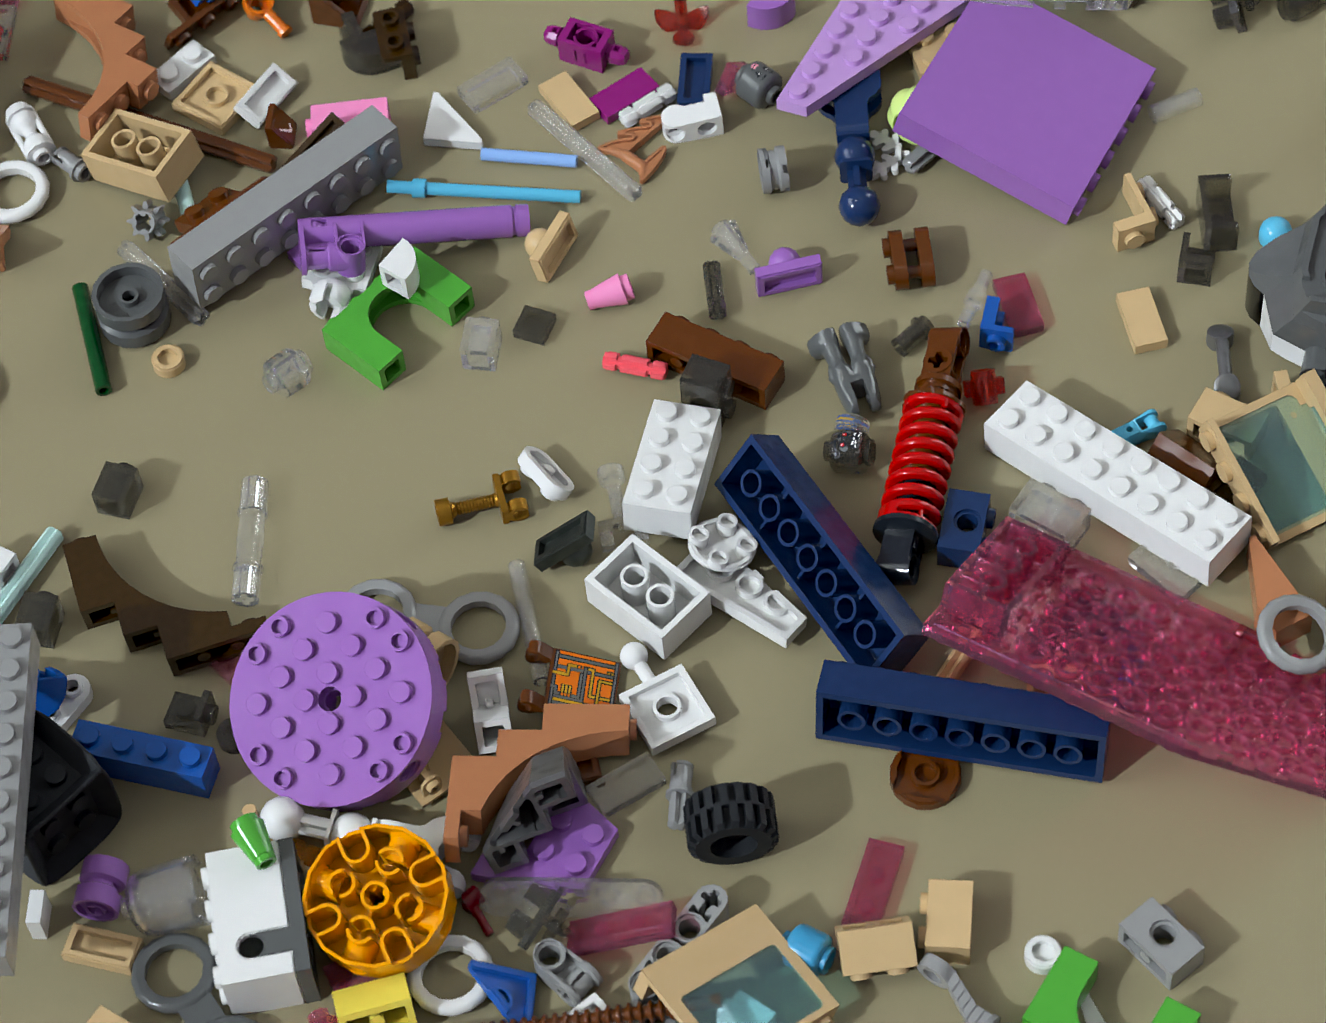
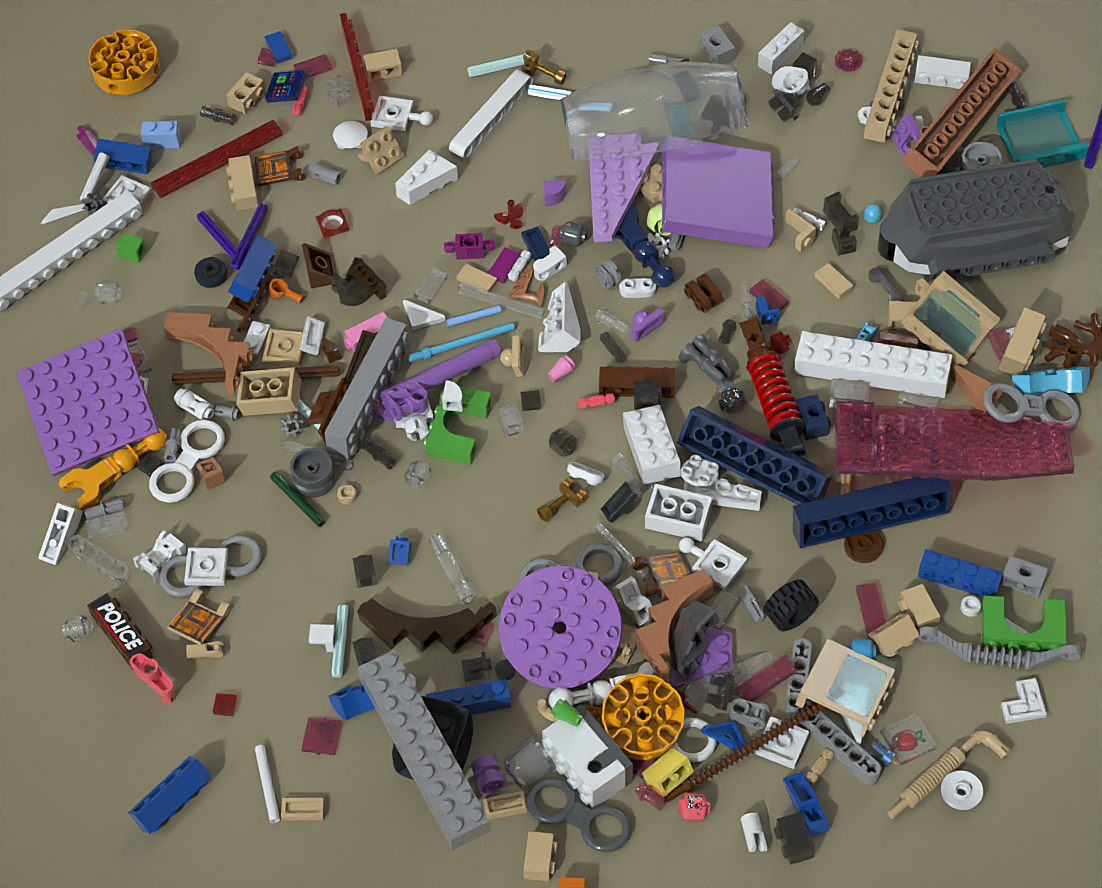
camera: 30 degrees left, 0 degrees up
(187, 480) = (399, 551): none -> blue bracket
(252, 316) = (378, 453): none -> clear smoke pin
(539, 410) = (563, 442): none -> clear smoke head
(654, 221) = (561, 325): none -> white wedge
(811, 210) = (638, 288): none -> white plate
(1051, 893) = (959, 574): none -> blue brick

